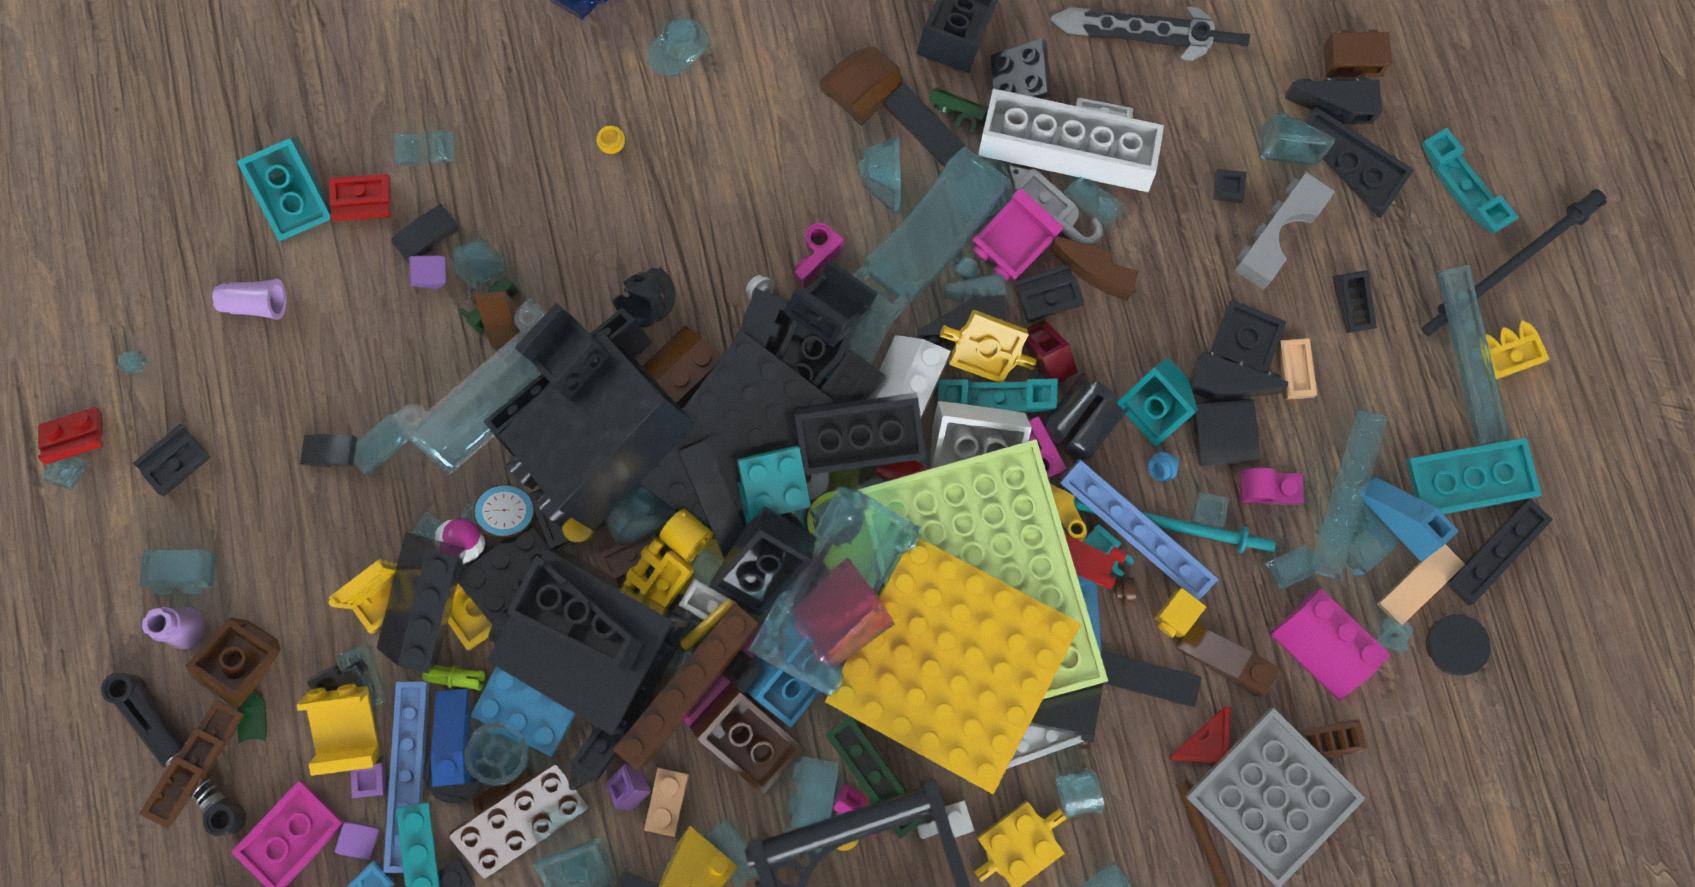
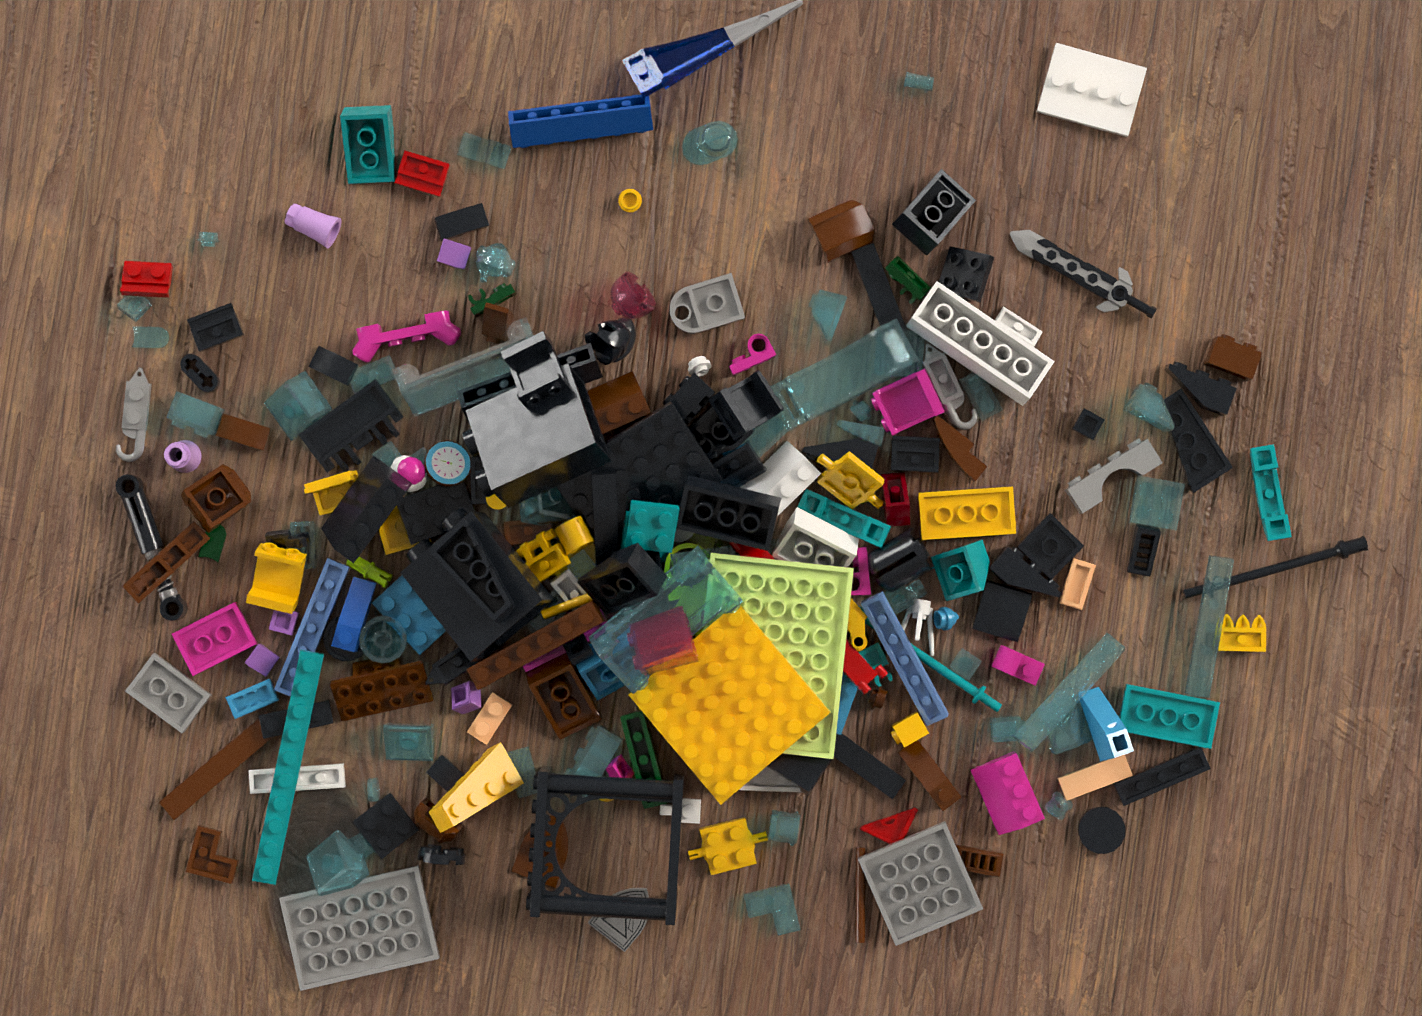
camera: 20 degrees right, 10 degrees up
(99, 502) = (150, 337): none -> clear light blue piece
(107, 599) = (135, 414): none -> light grey plate
(167, 527) = (196, 377): none -> black beam
(243, 570) = (242, 431): none -> reddish brown slope
(300, 512) = (297, 405): none -> clear light blue slope
(364, 400) = (436, 324): none -> dark pink plate
(371, 509) = (351, 424): none -> black hinge
(521, 72) = (580, 121): none -> blue brick
(650, 242) = (630, 298): none -> clear pink cylinder
(744, 217) = (709, 305): none -> light grey plate
(1107, 459) = (902, 598): none -> clear light blue plate
(1134, 468) = (921, 610): none -> white plant
(1136, 336) = (967, 513): none -> yellow plate
(1346, 242) = (1156, 503): none -> clear light blue plate

